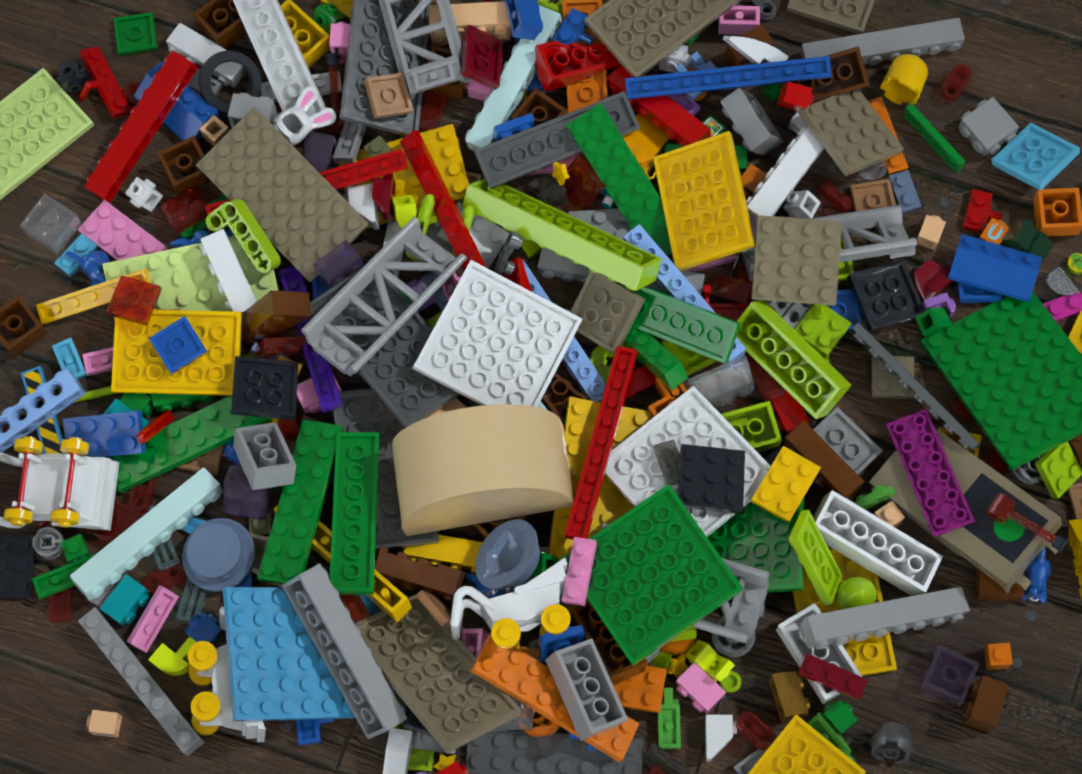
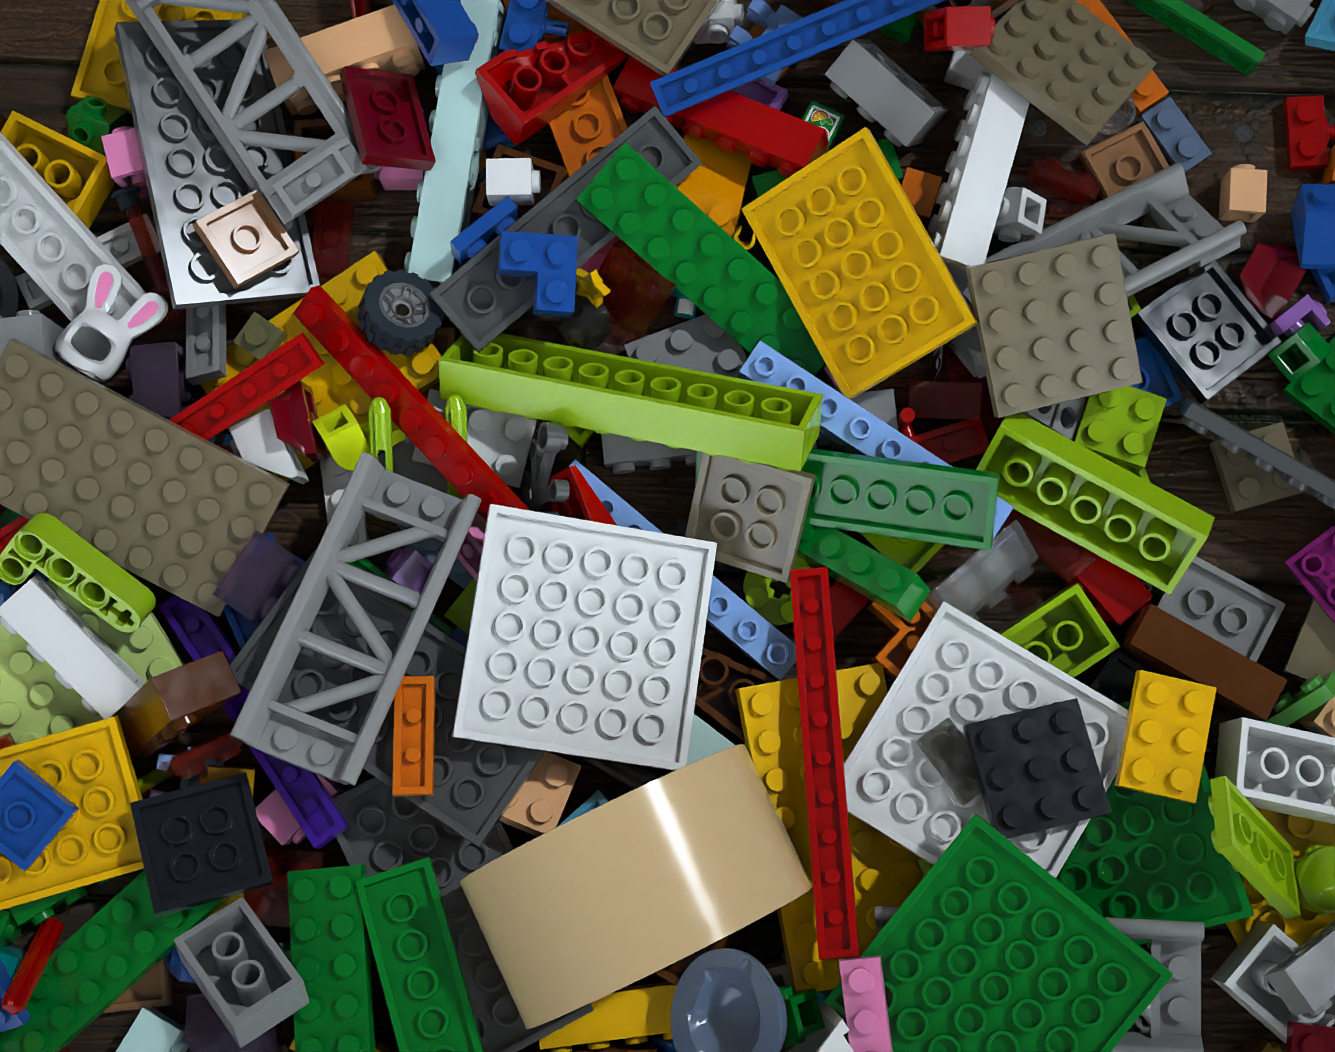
camera: 20 degrees left, 10 degrees up
(393, 363) = (414, 737): none -> orange plate
(455, 156) = (408, 295): none -> black wheel
(537, 105) = (513, 179): none -> white brick
(539, 149) = (549, 260): none -> blue brick

